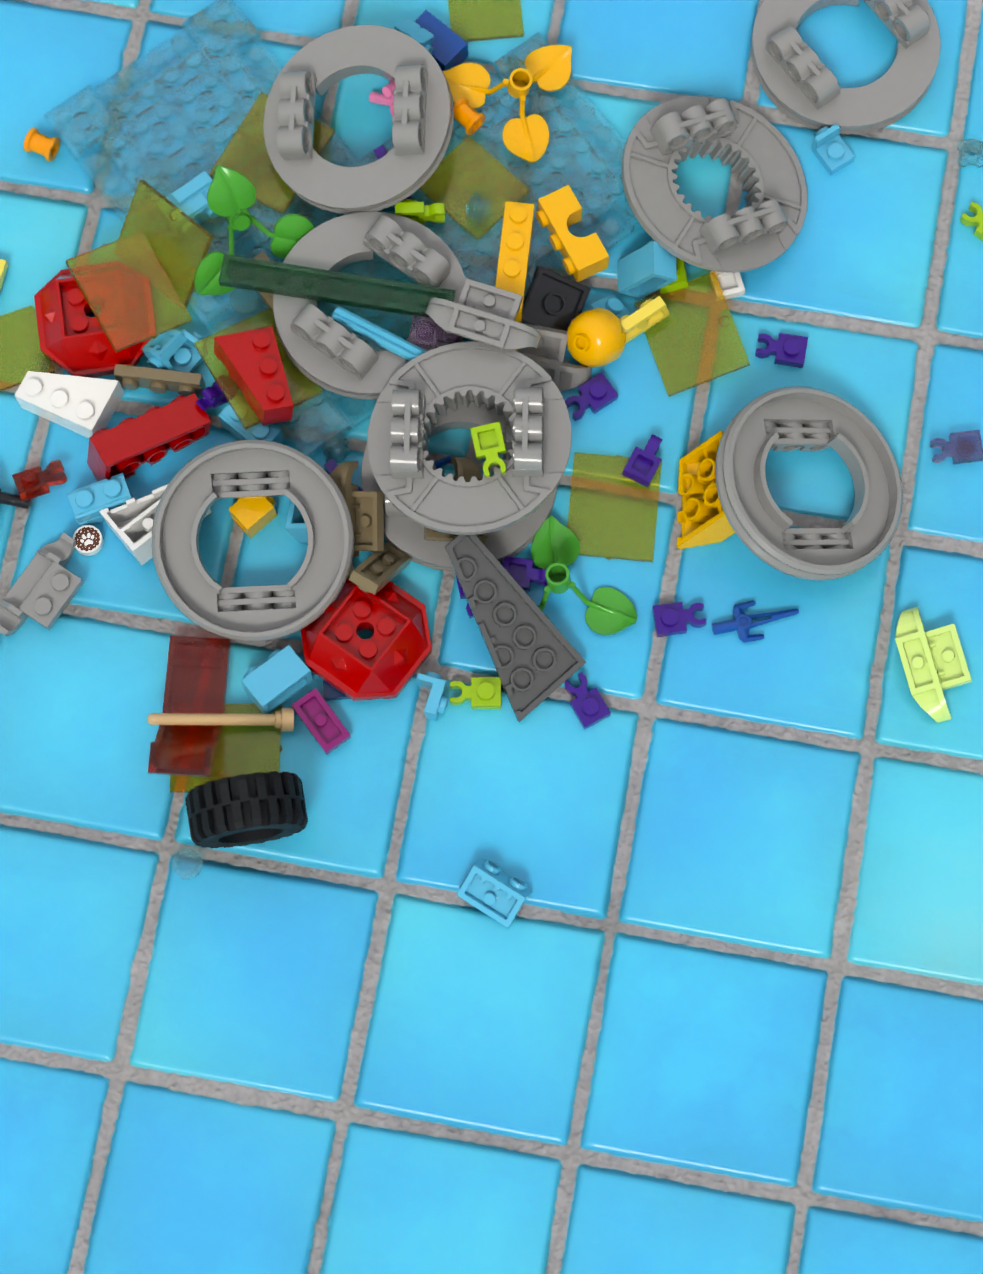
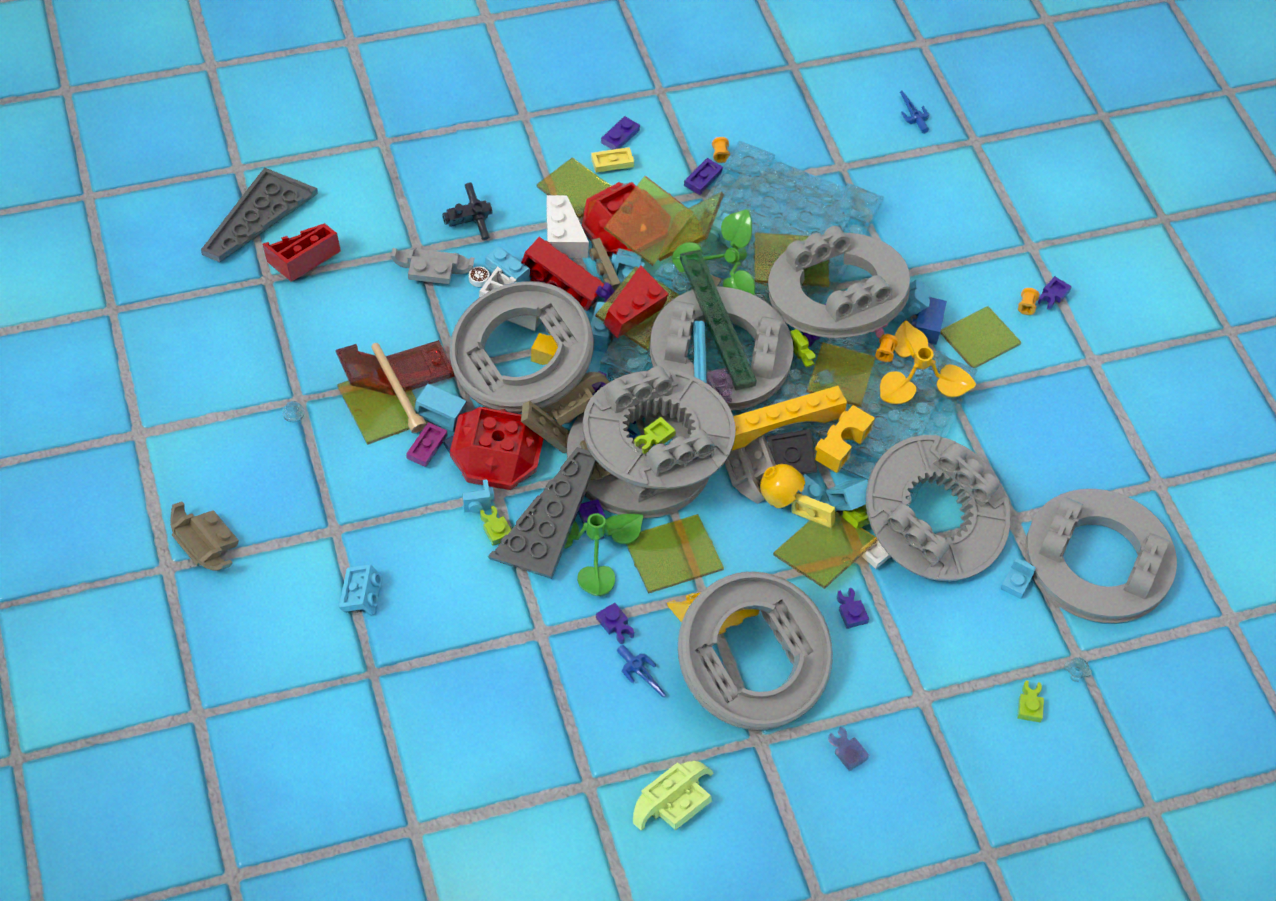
camera: 55 degrees right, 20 degrees down
(36, 482) = (500, 233): clear red plate -> none
(73, 188) = (703, 176): none -> dark purple plate
(246, 809) = (339, 414): black tyre -> none
(327, 1052) = (202, 537): none -> dark tan plate
(484, 316) = (746, 401): light grey plate -> none
(588, 705) = (524, 593): dark purple plate -> none
(594, 395) = (744, 509): dark purple plate -> none
(643, 463) = (712, 554): dark purple plate -> none

